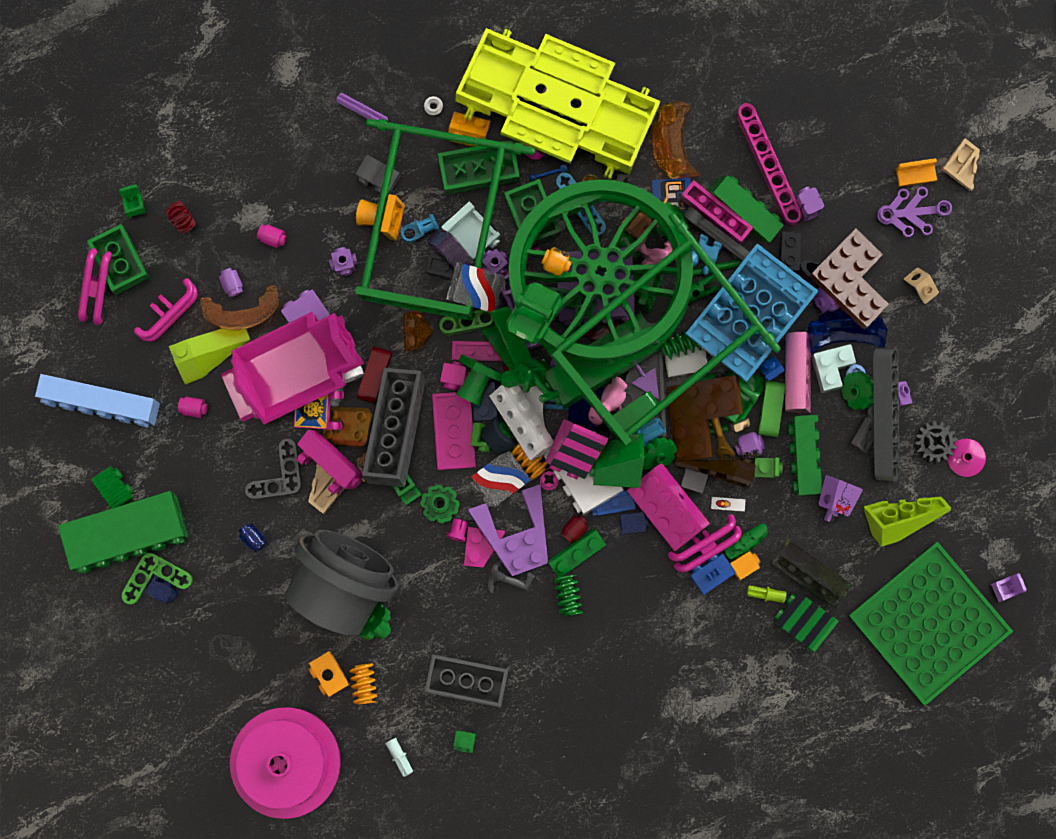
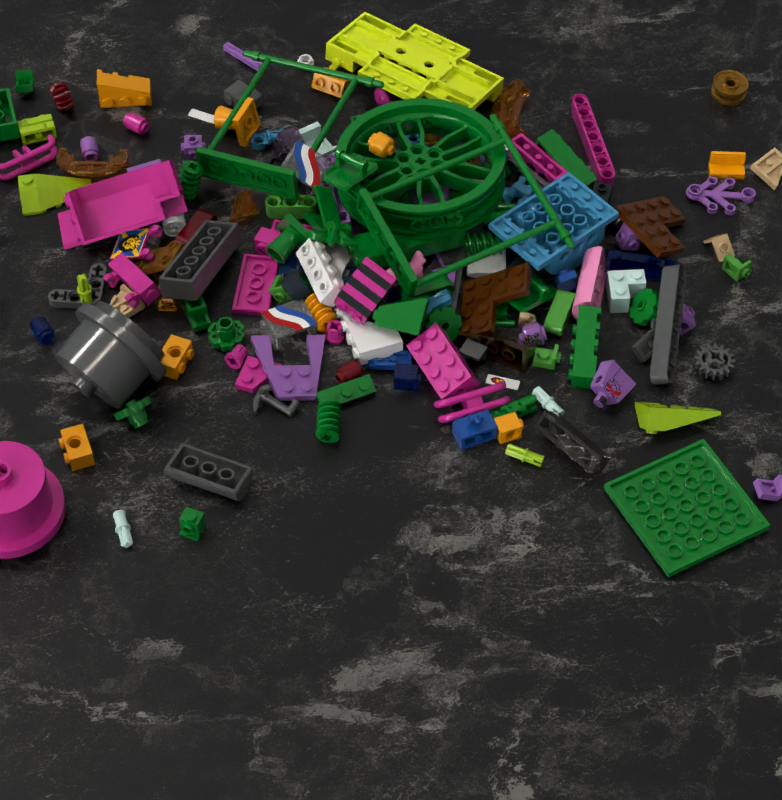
camera: 10 degrees right, 30 degrees down
(165, 266) = (36, 129): none -> lime brick
(192, 407) = (22, 227): dark pink brick -> none
(246, 194) = (122, 90): none -> light orange wedge
(284, 489) = (84, 289): none -> lime axle
(339, 205) = (201, 115): none -> white sticker
(353, 312) = (191, 177): none -> green piece
(363, 684) = (107, 460): light orange piece -> none
(393, 533) = (177, 353): none -> light orange brick
(473, 168) = (318, 101): green brick -> none
(723, 446) = (507, 331): pearl gold piece -> none
(778, 525) = (547, 401): none -> light aqua axle
(805, 622) = (560, 481): slope -> none
(809, 203) = (624, 166): medium lavender brick -> none
(913, 46) = (729, 87): none -> pearl gold wheel
(940, 312) = (735, 268): none -> bright green bracket
(960, 465) = (742, 388): dark pink dish -> none

